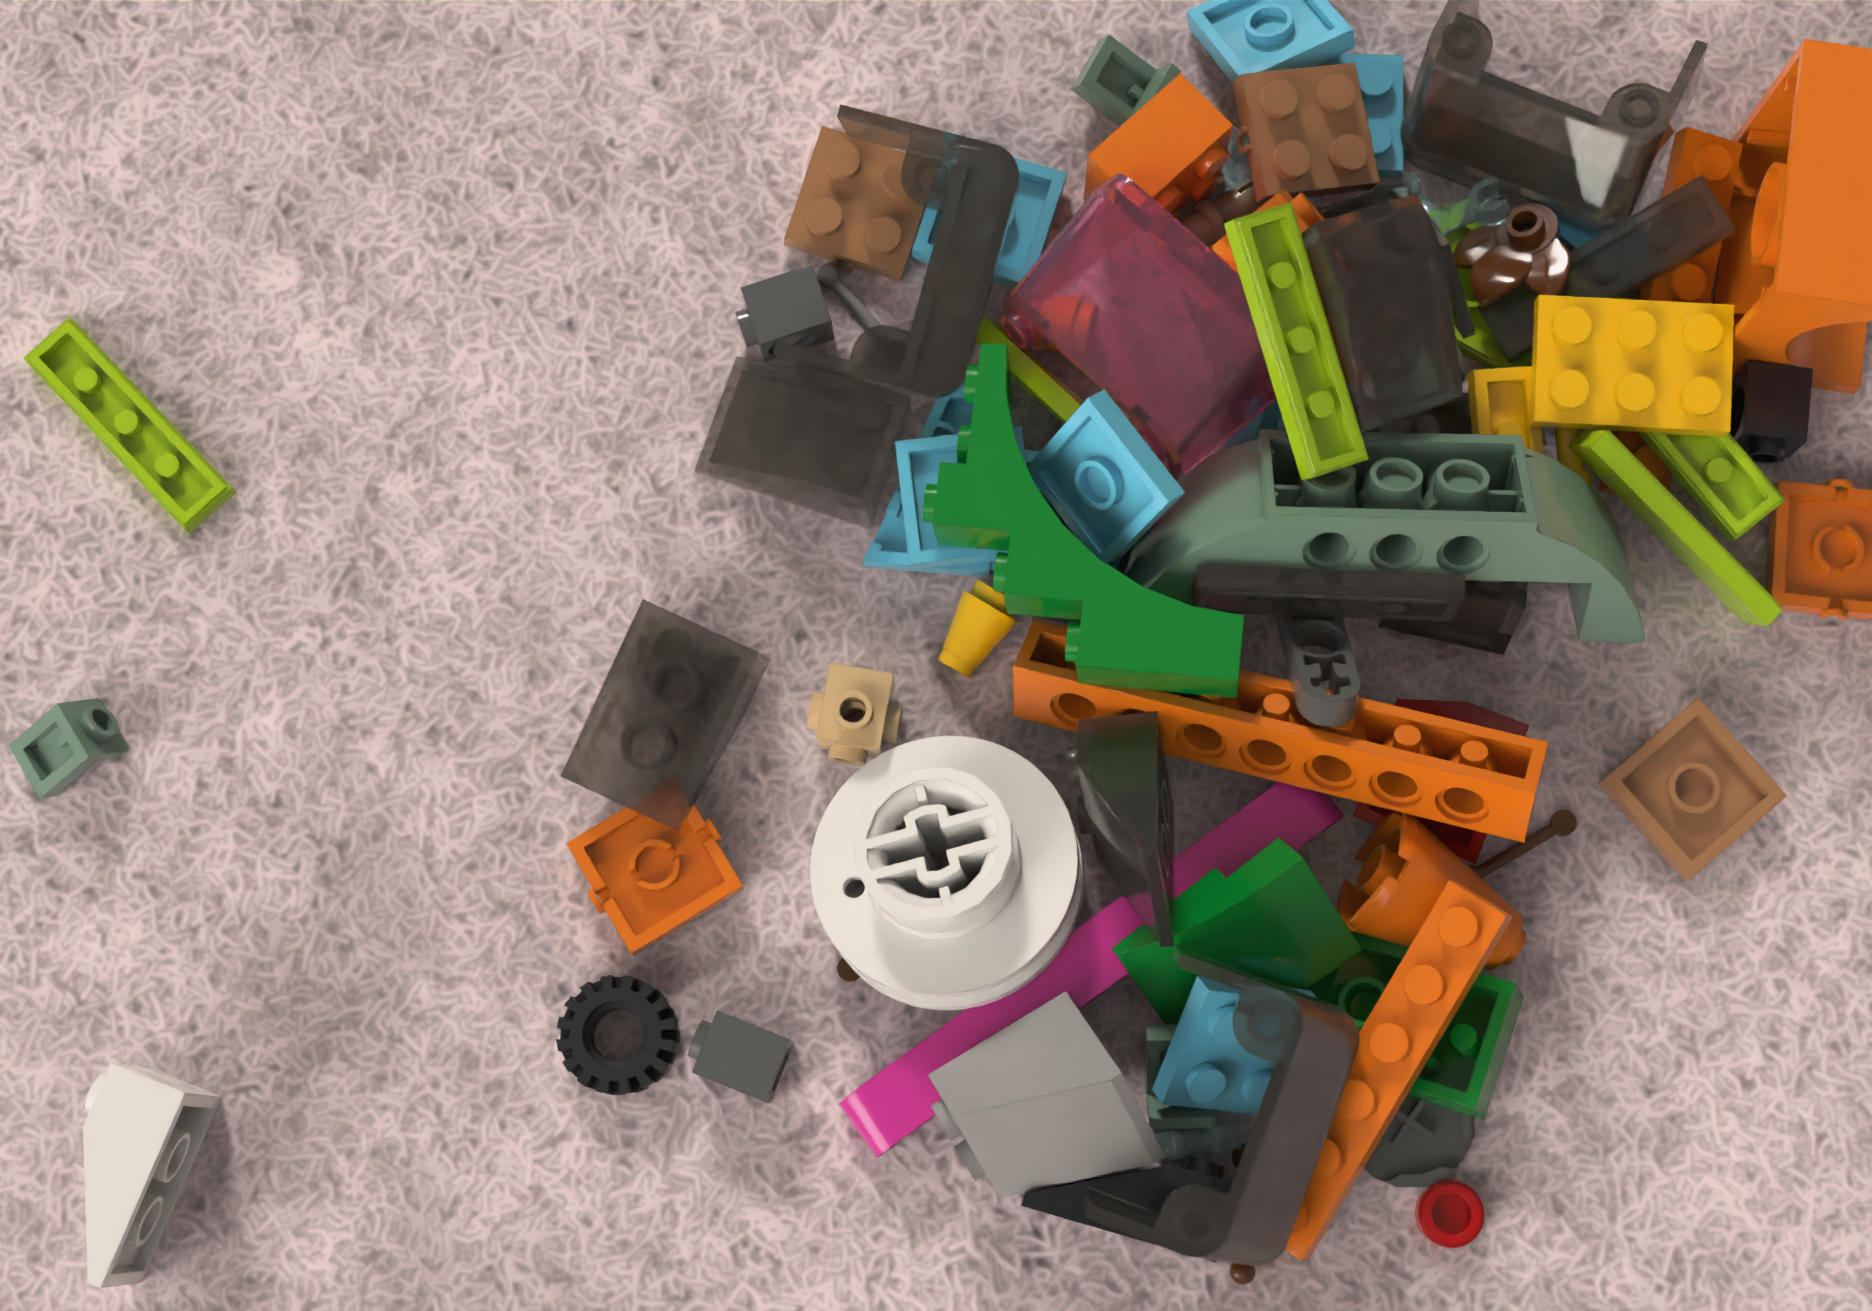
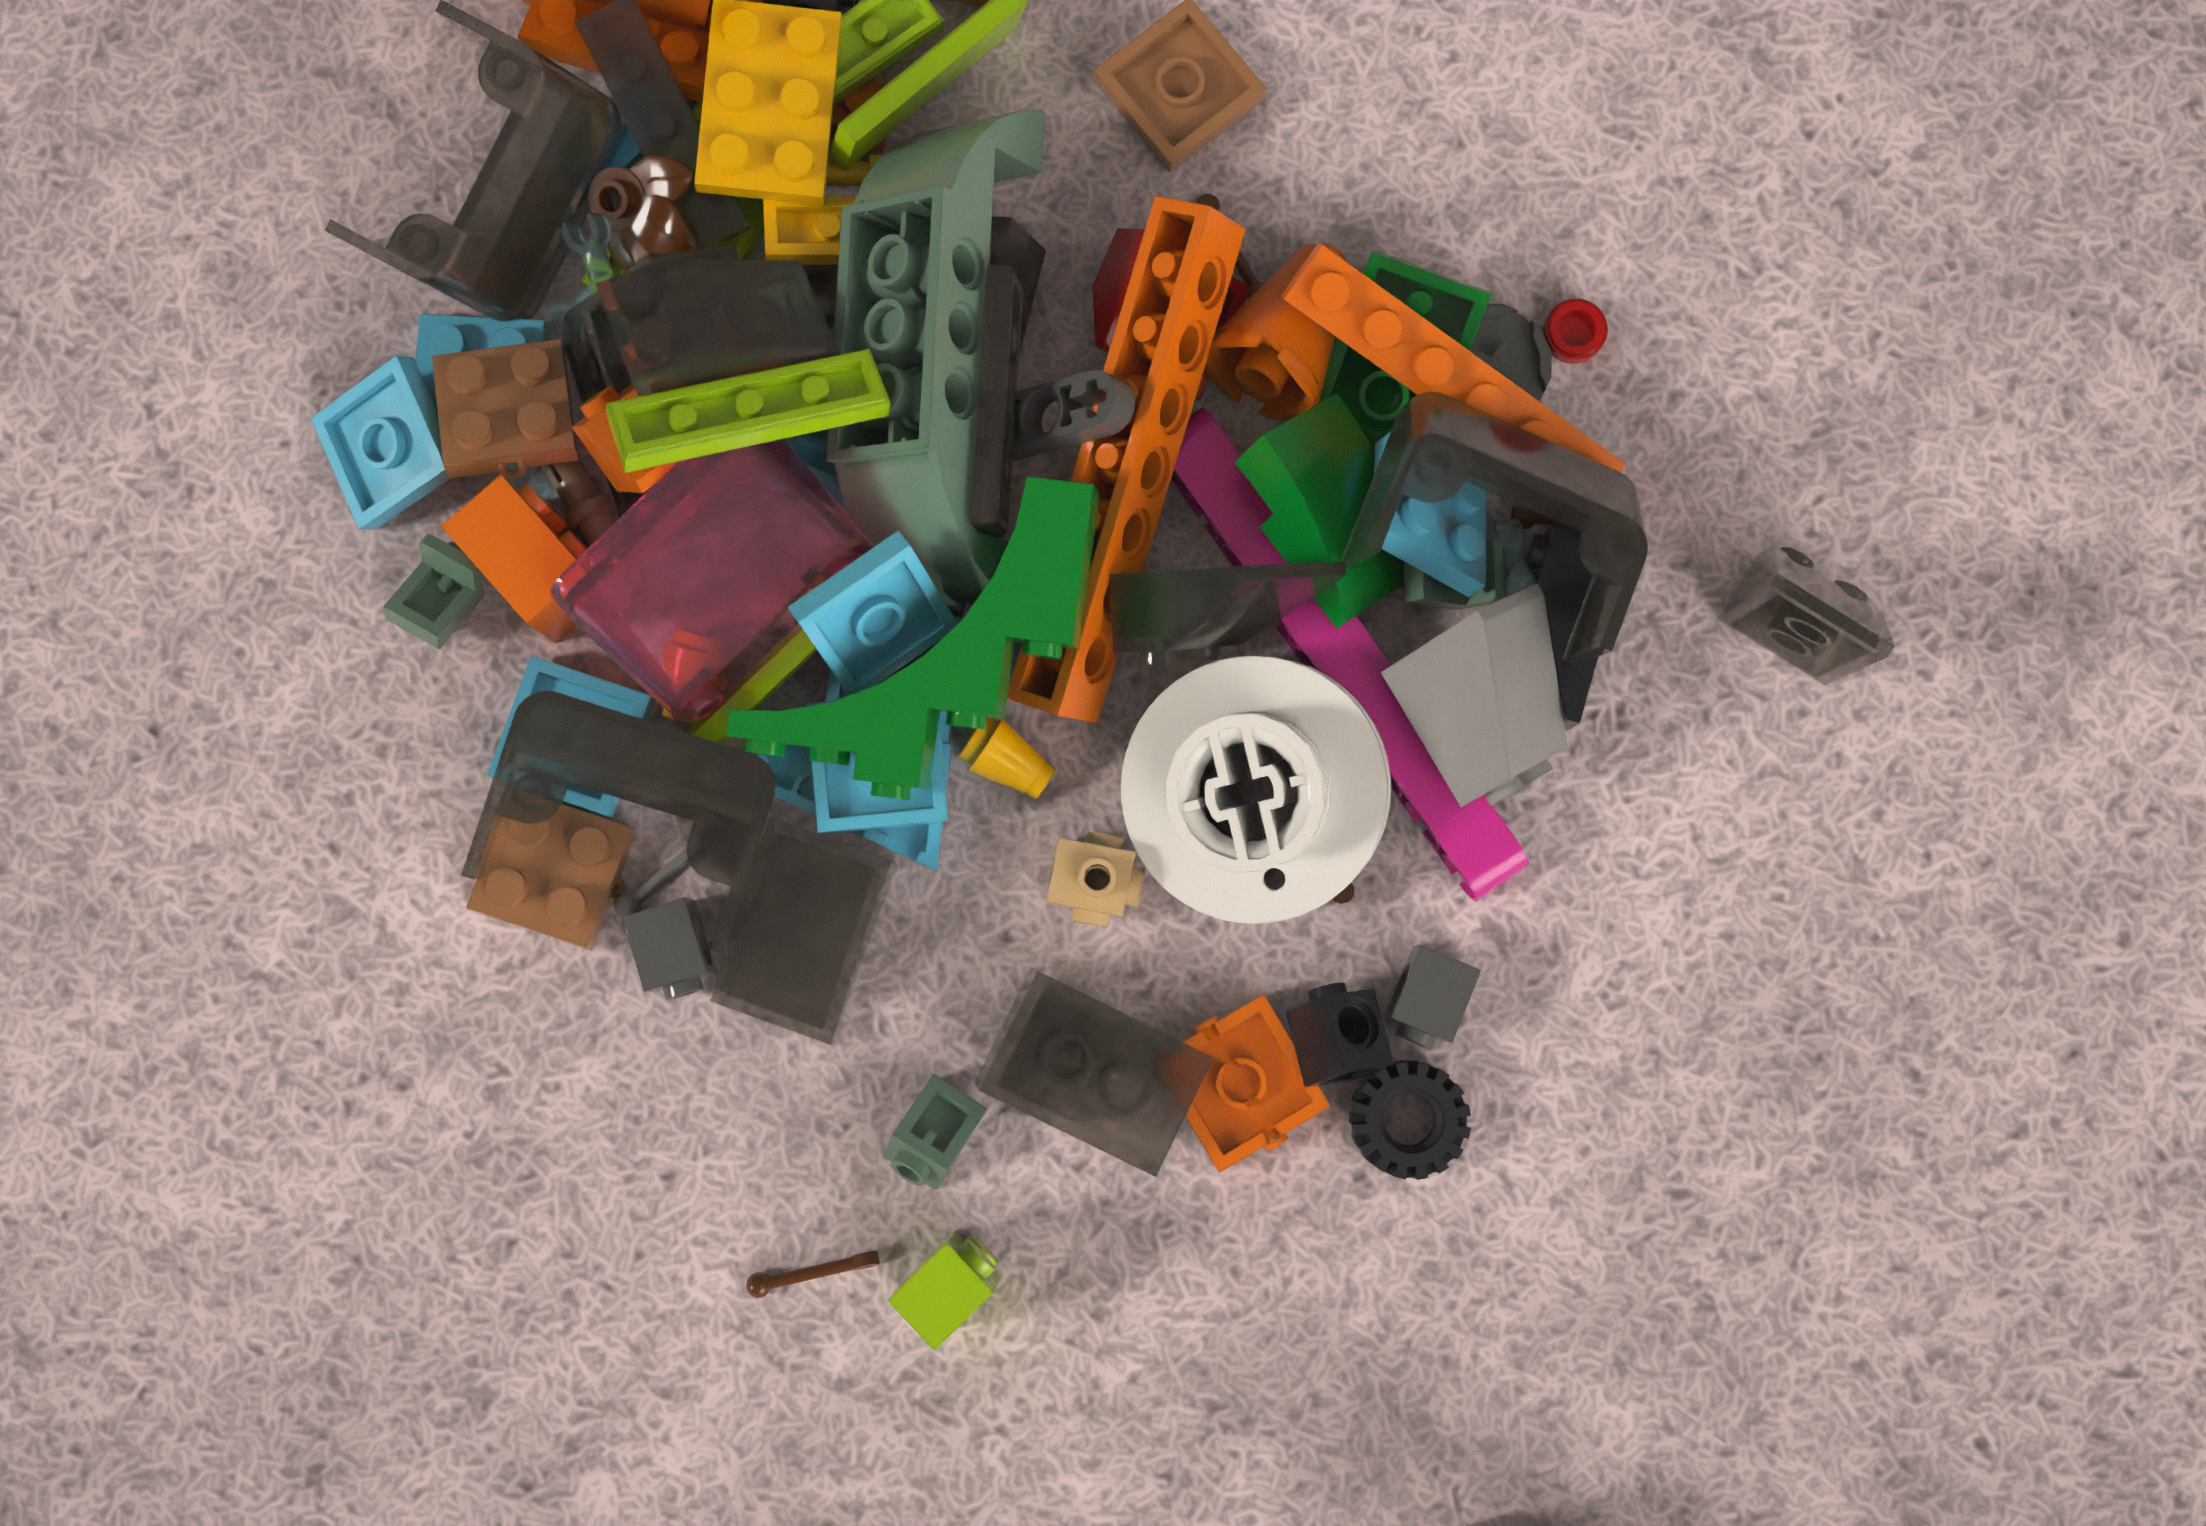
camera: 95 degrees left, 5 degrees up
(457, 576) = (946, 1288): none -> lime brick
(467, 412) = (760, 1284): none -> reddish brown hinge
(608, 567) = (933, 1133): none -> sand green bracket
(685, 939) = (1339, 1035): none -> black brick

